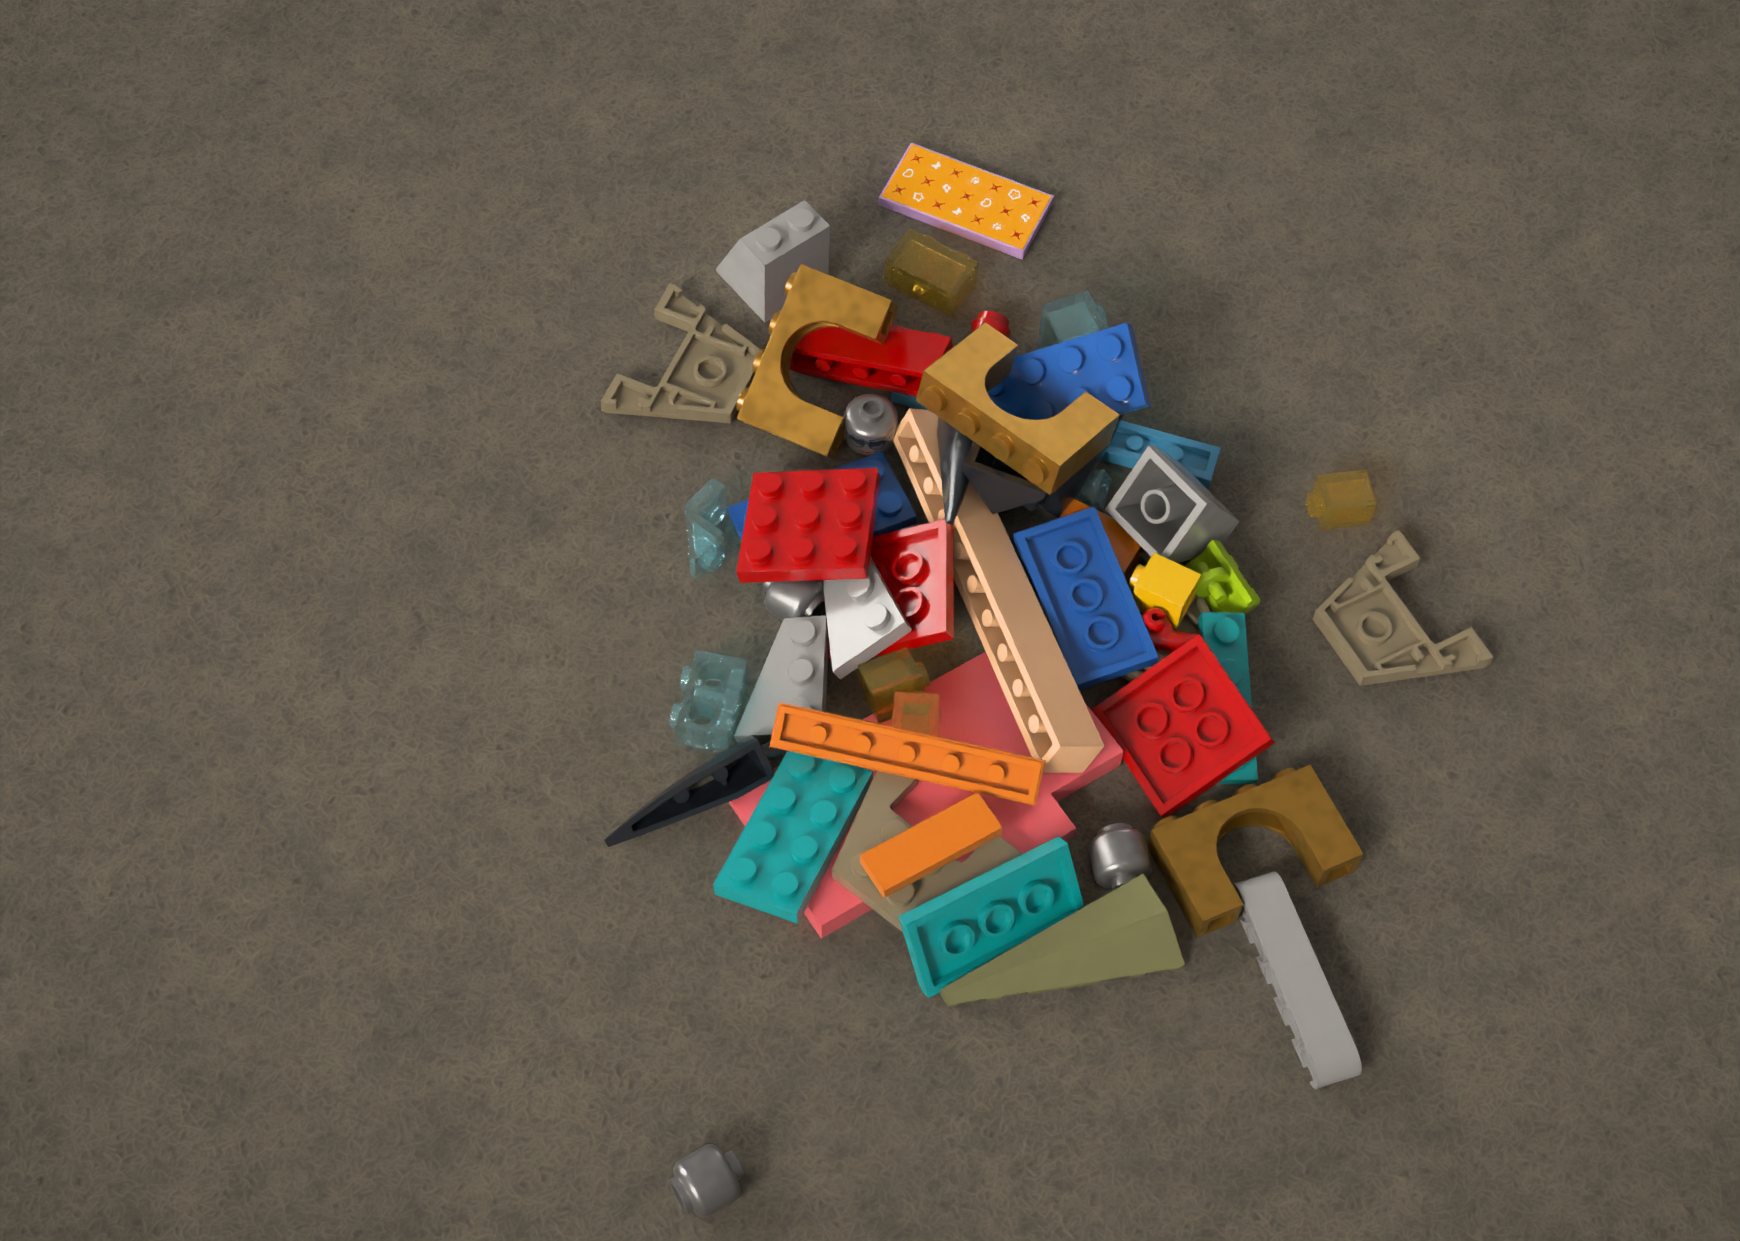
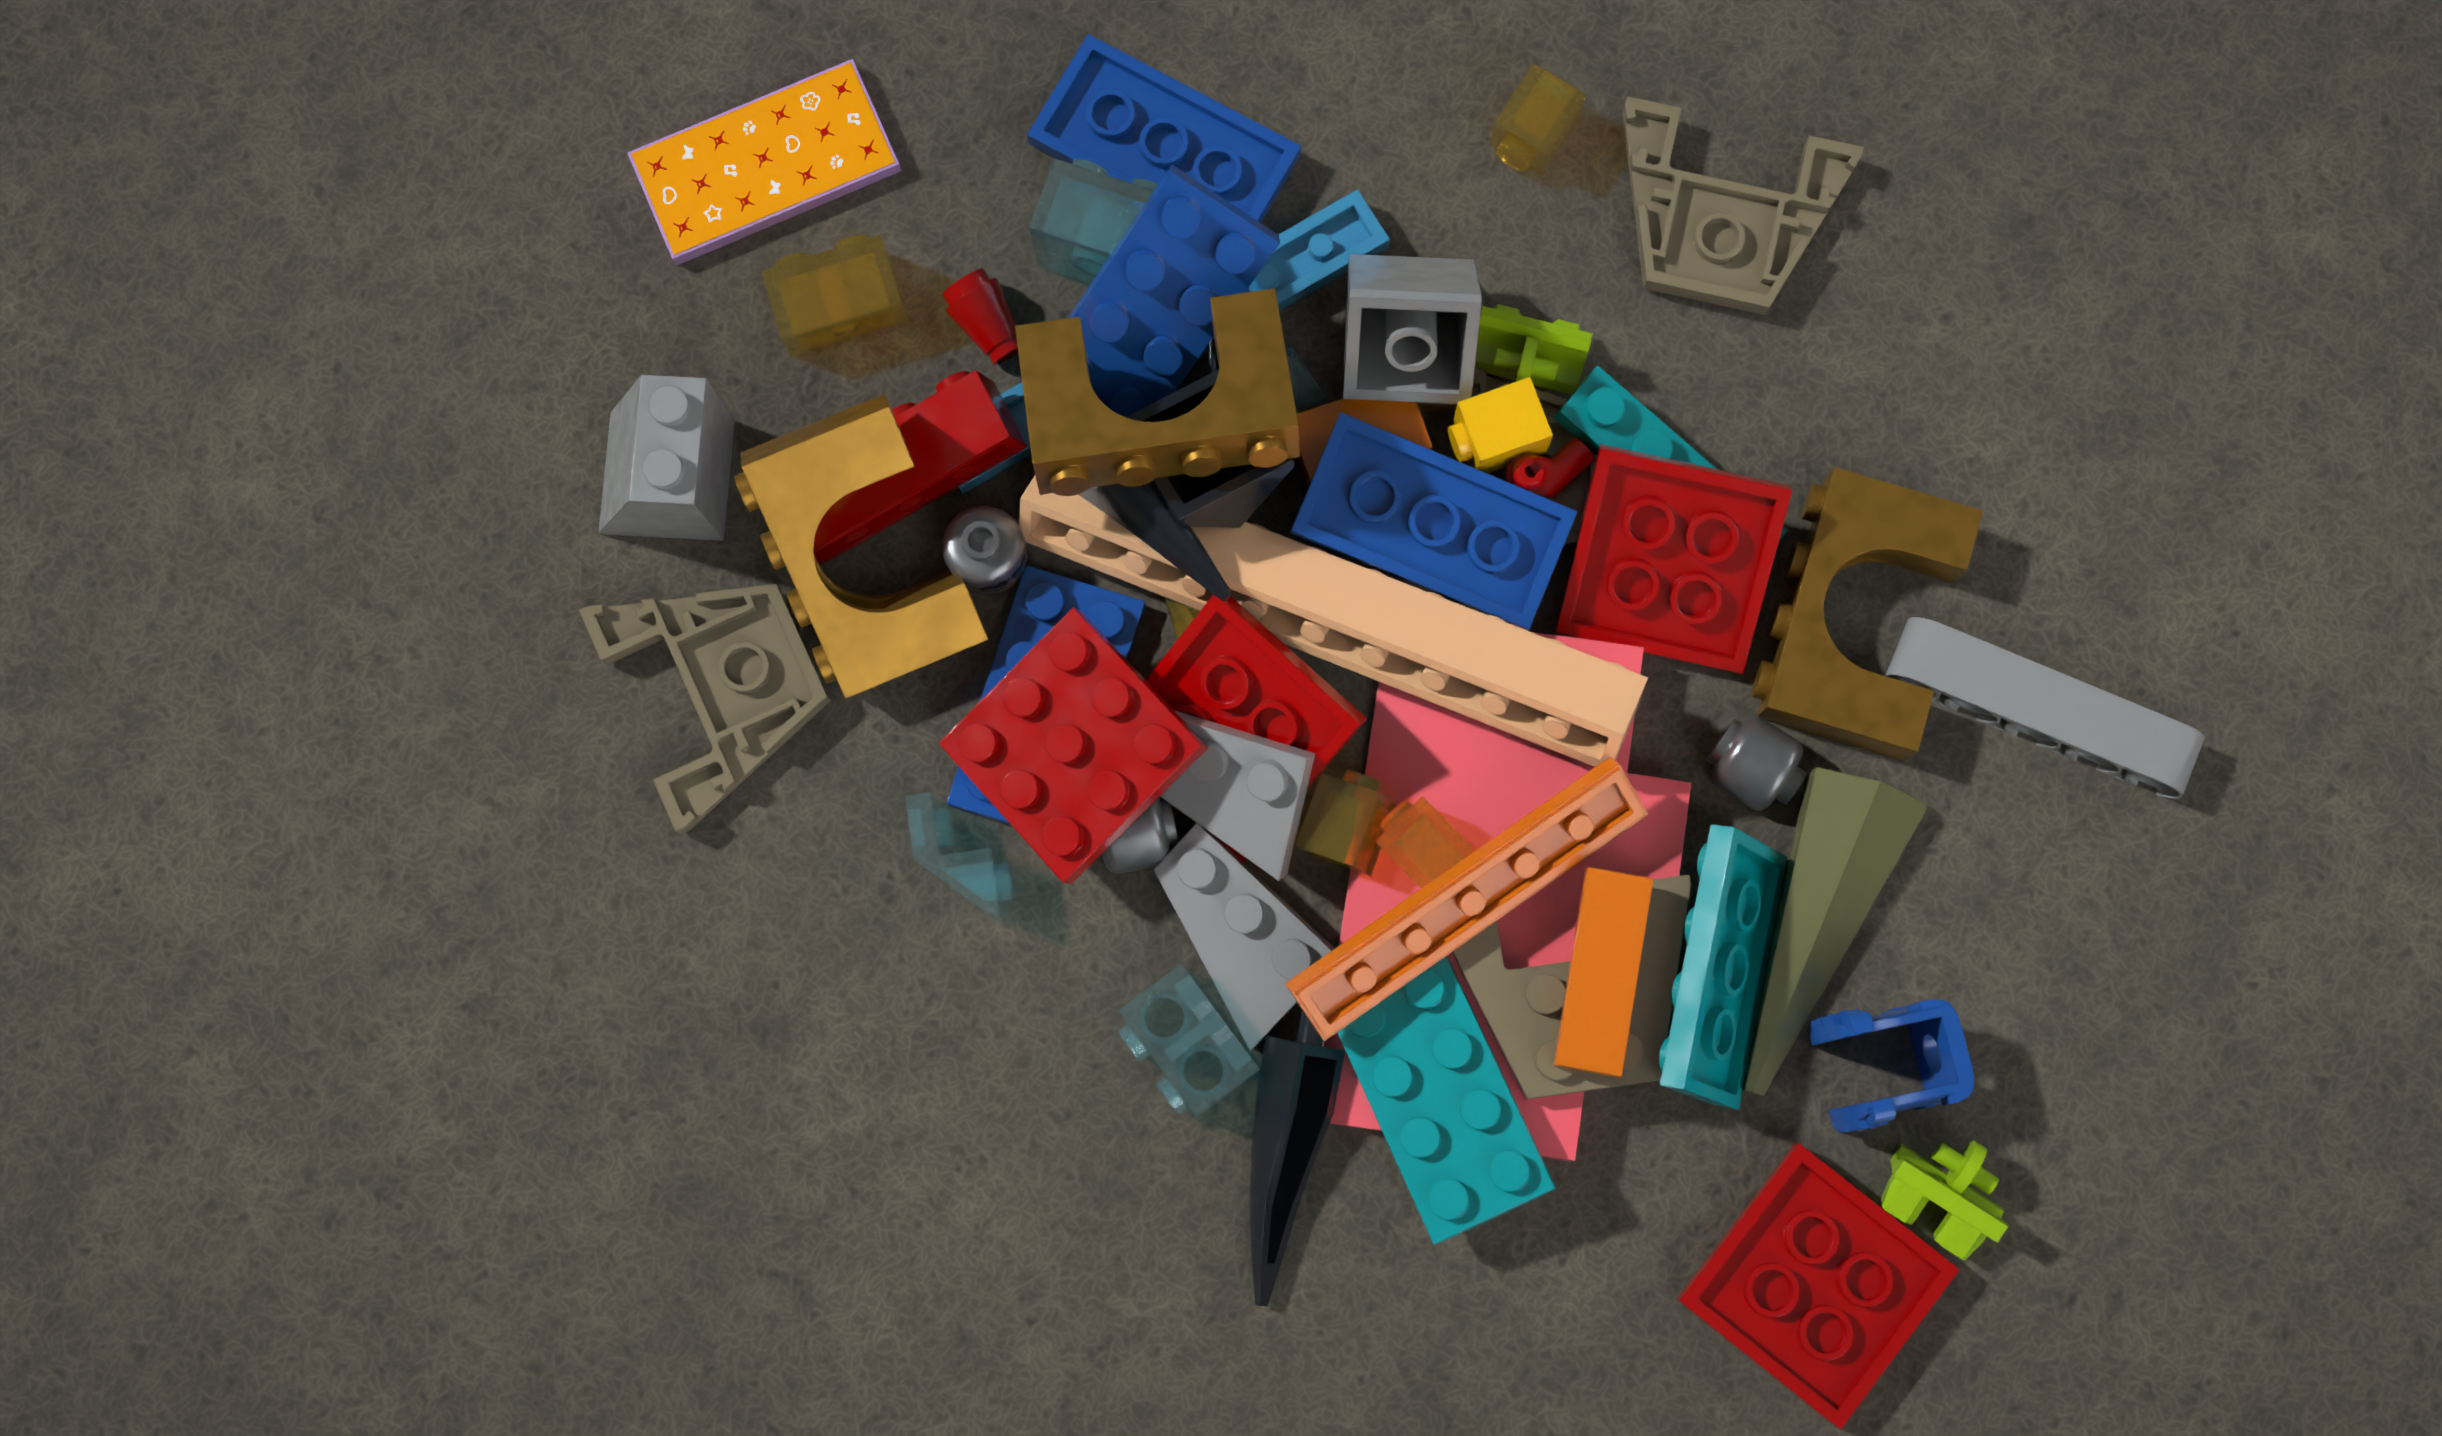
camera: 40 degrees left, 20 degrees up
(870, 1108) = (1817, 1285): none -> red plate
(976, 1114) = (1969, 1214): none -> lime hips
(1033, 1015) = (1929, 1025): none -> blue piece
(1165, 349) = (1145, 121): none -> blue plate

